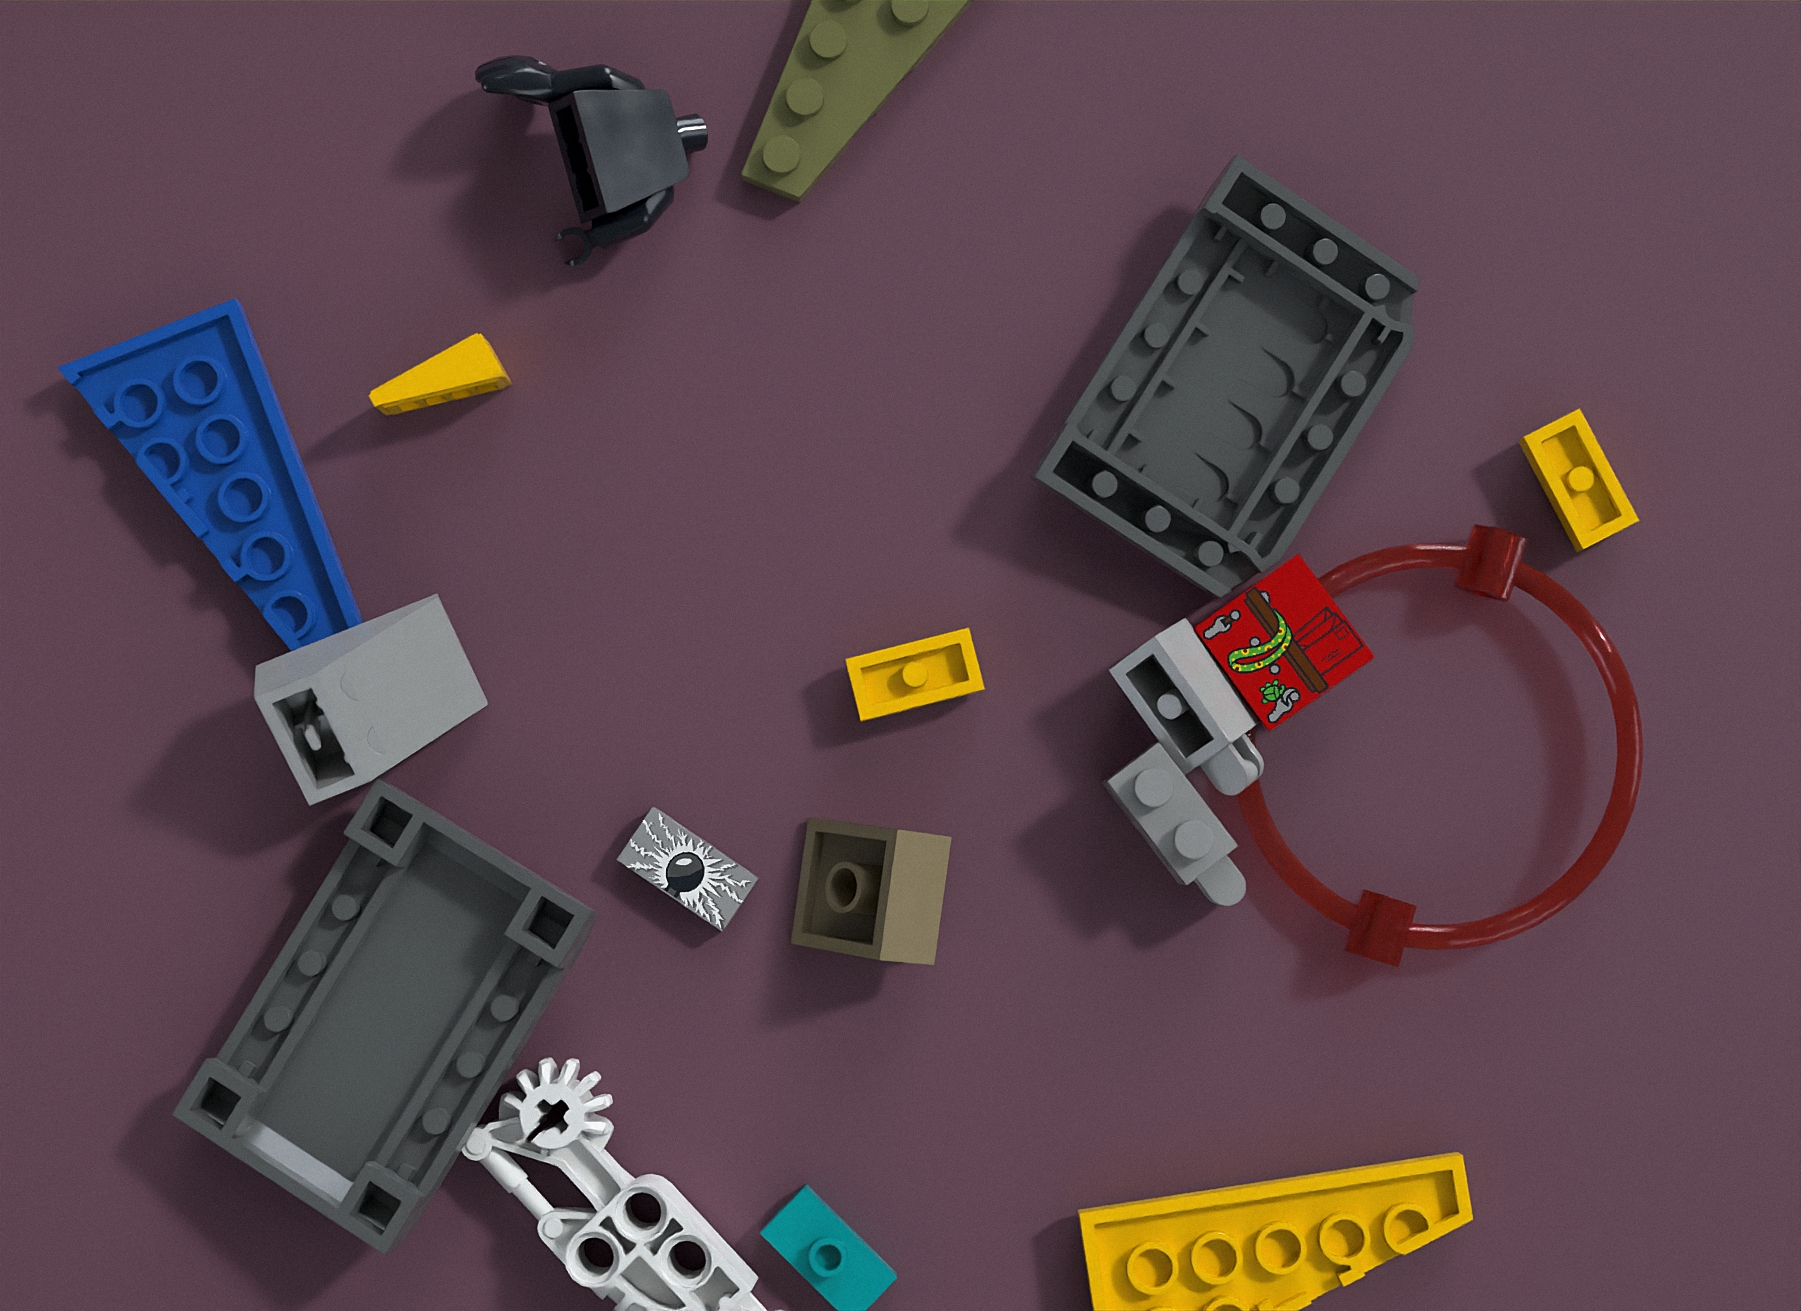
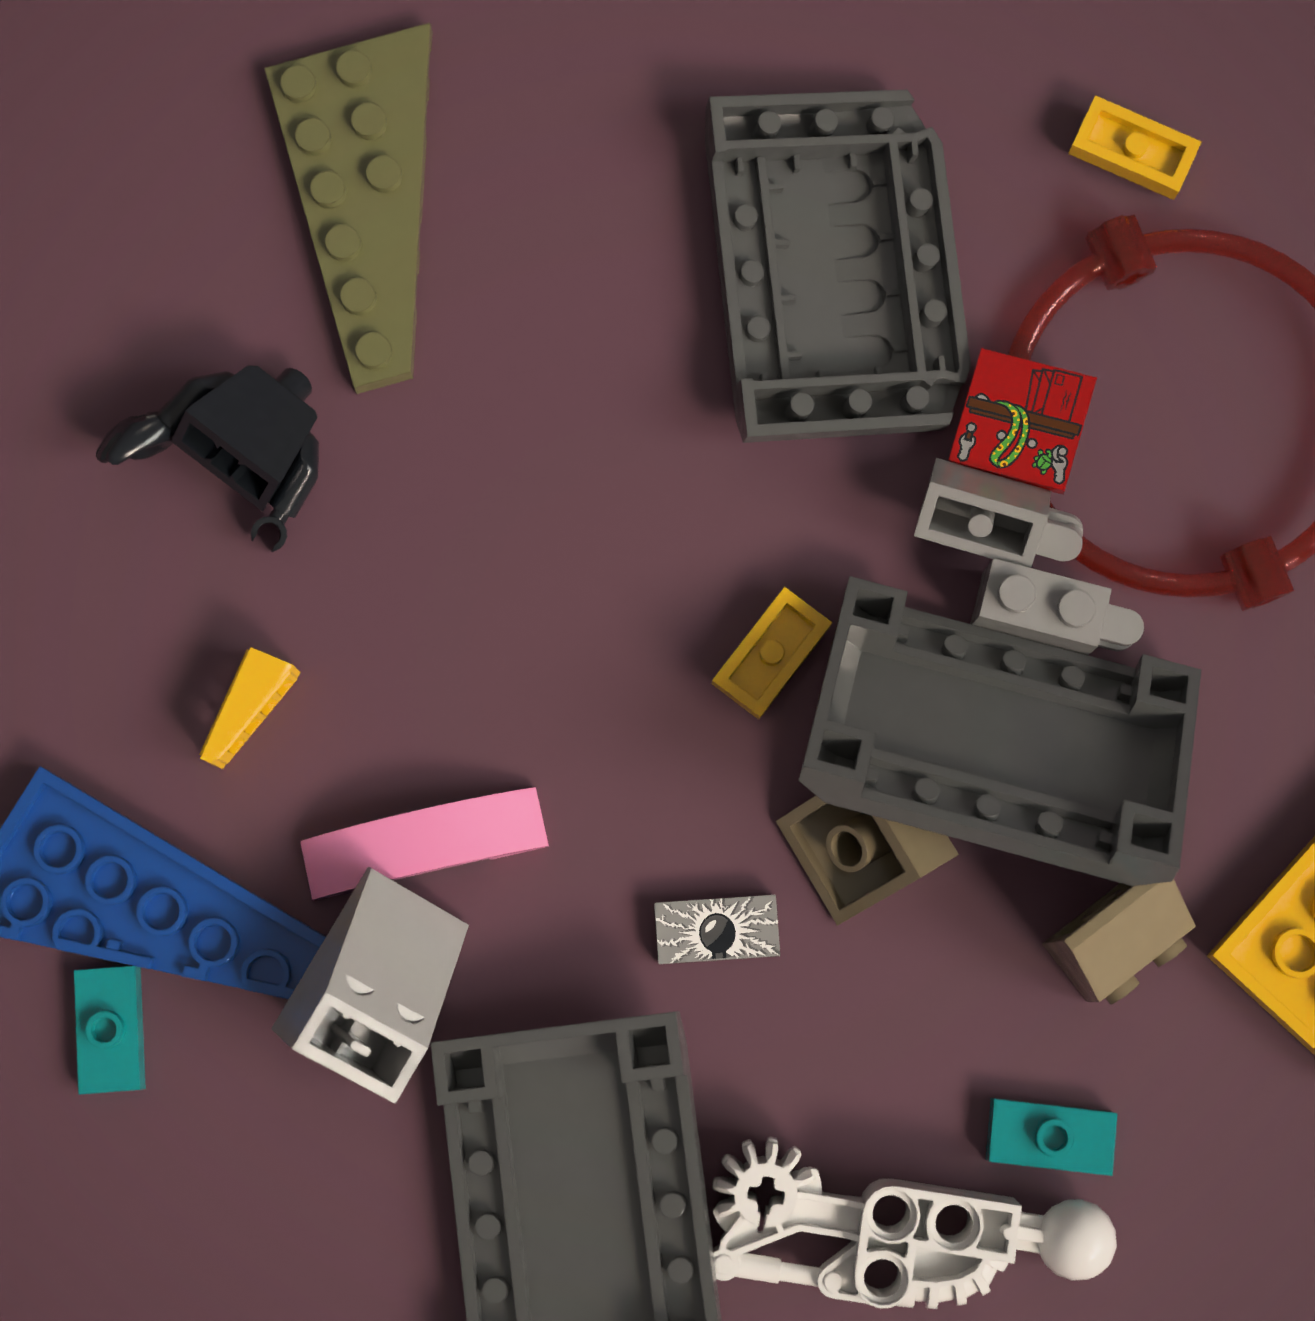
camera: 35 degrees left, 5 degrees down
(130, 562) = (109, 1030): none -> teal plate
(505, 608) = (425, 841): none -> bright pink slope
(1016, 1137) = (1120, 937): none -> dark tan slope
(1043, 898) = (1004, 739): none -> dark grey slope

